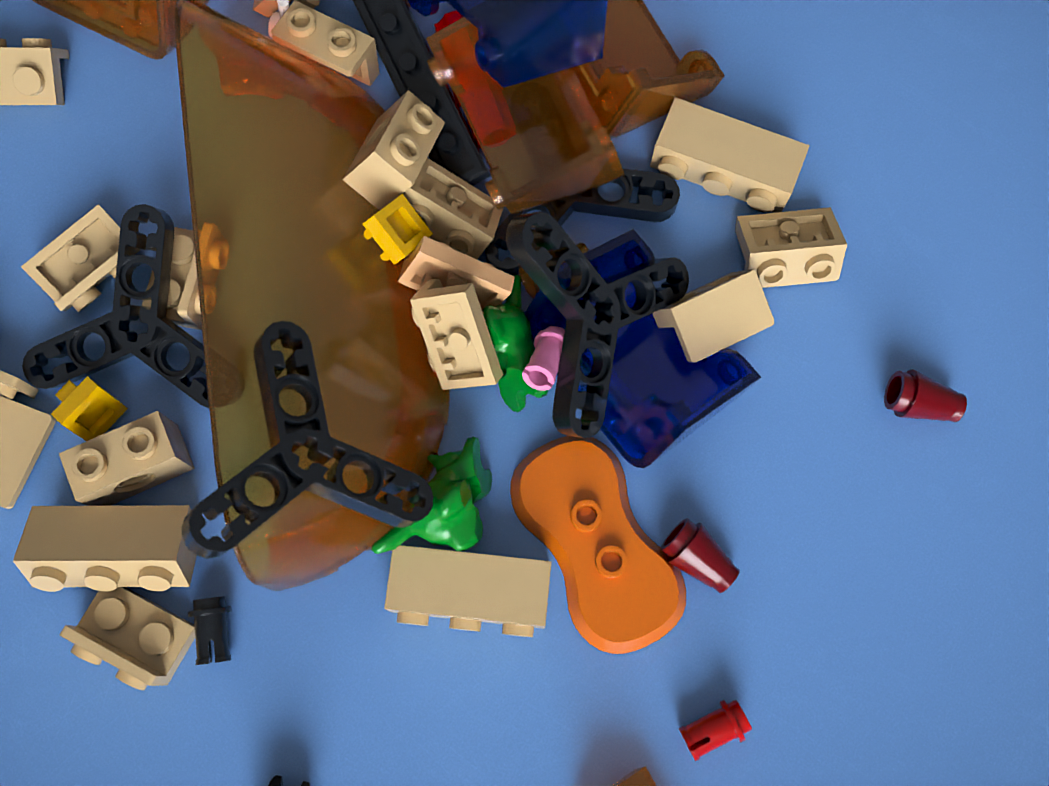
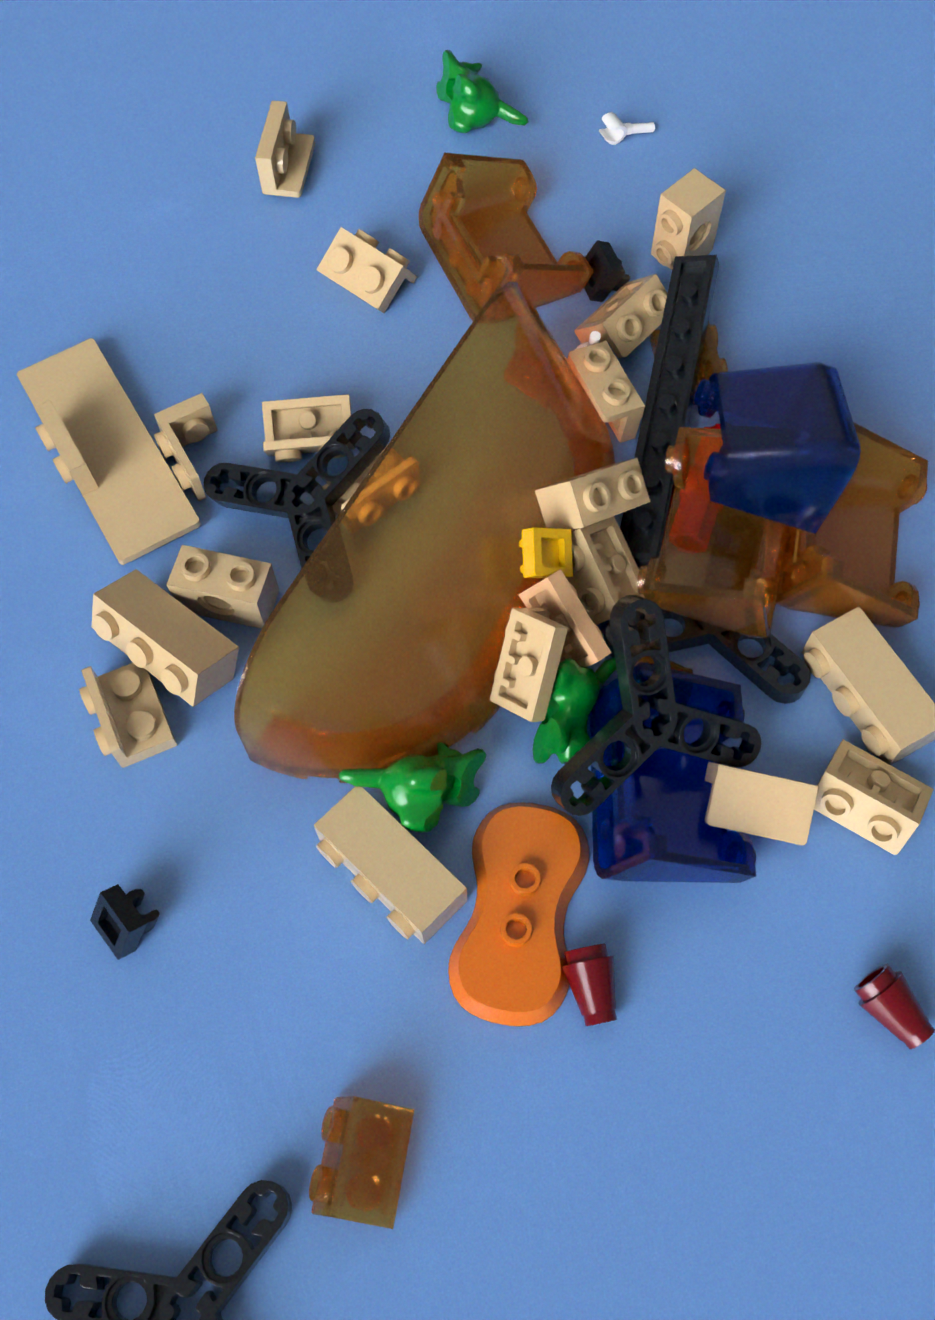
camera: 40 degrees right, 10 degrees down
(87, 408) = (227, 530): yellow tile -> none
(209, 625) = (183, 749): black pin -> none
(281, 465) = (319, 644): black piece -> none
(545, 360) = (578, 731): bright pink pin -> none
(715, 729) = (497, 1129): red pin -> none

